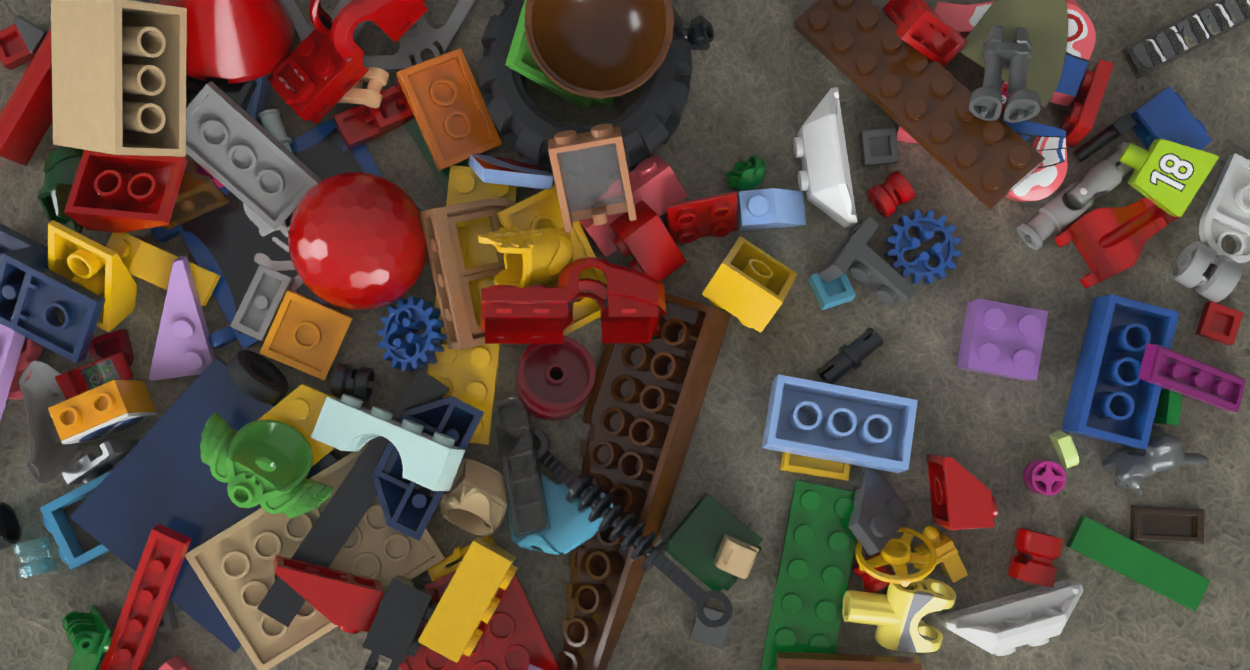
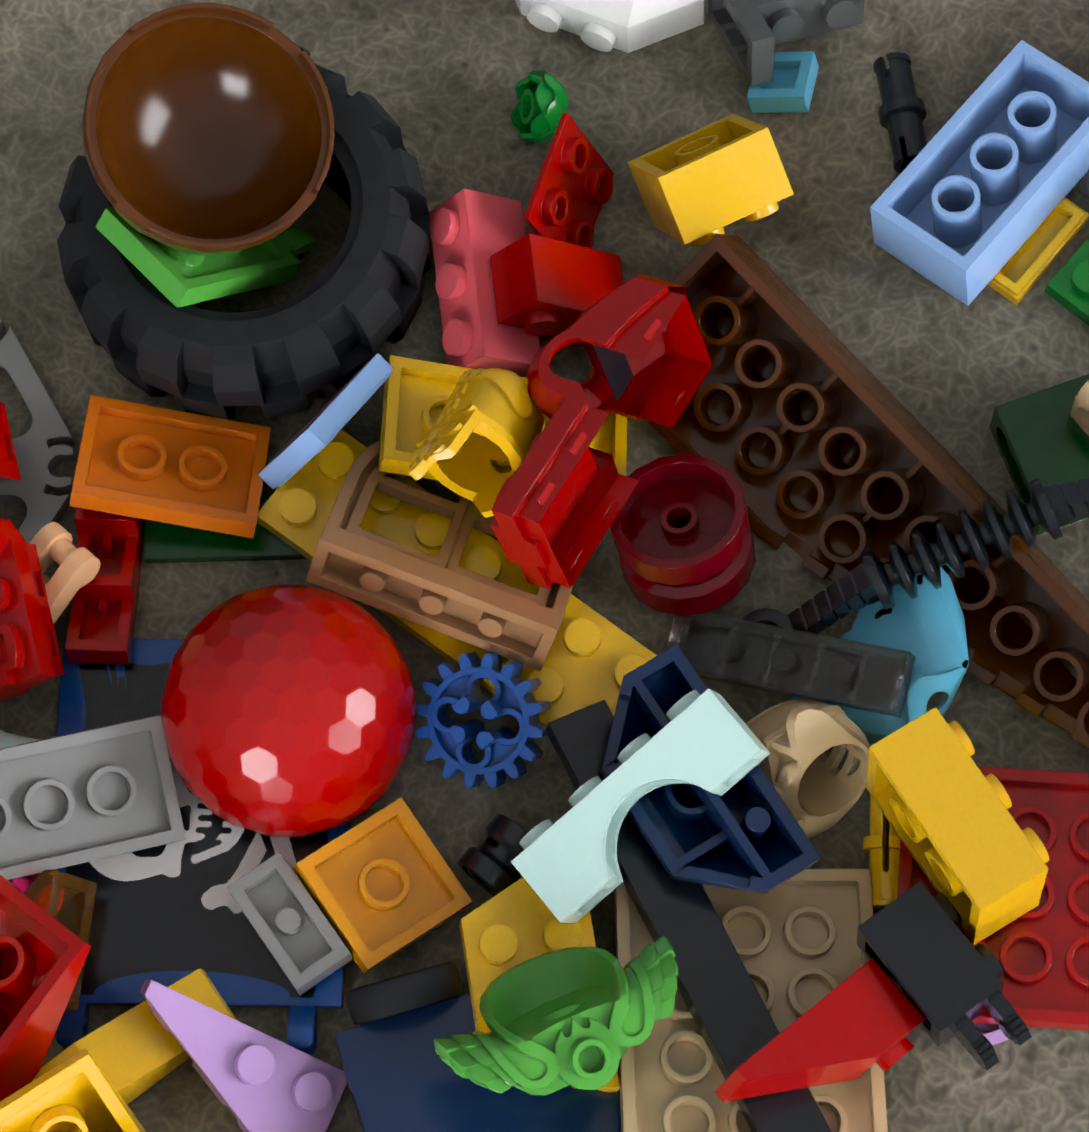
camera: 60 degrees left, 15 degrees down
(591, 175) = (419, 279): window -> none
(770, 209) = (614, 103): light blue slope -> none

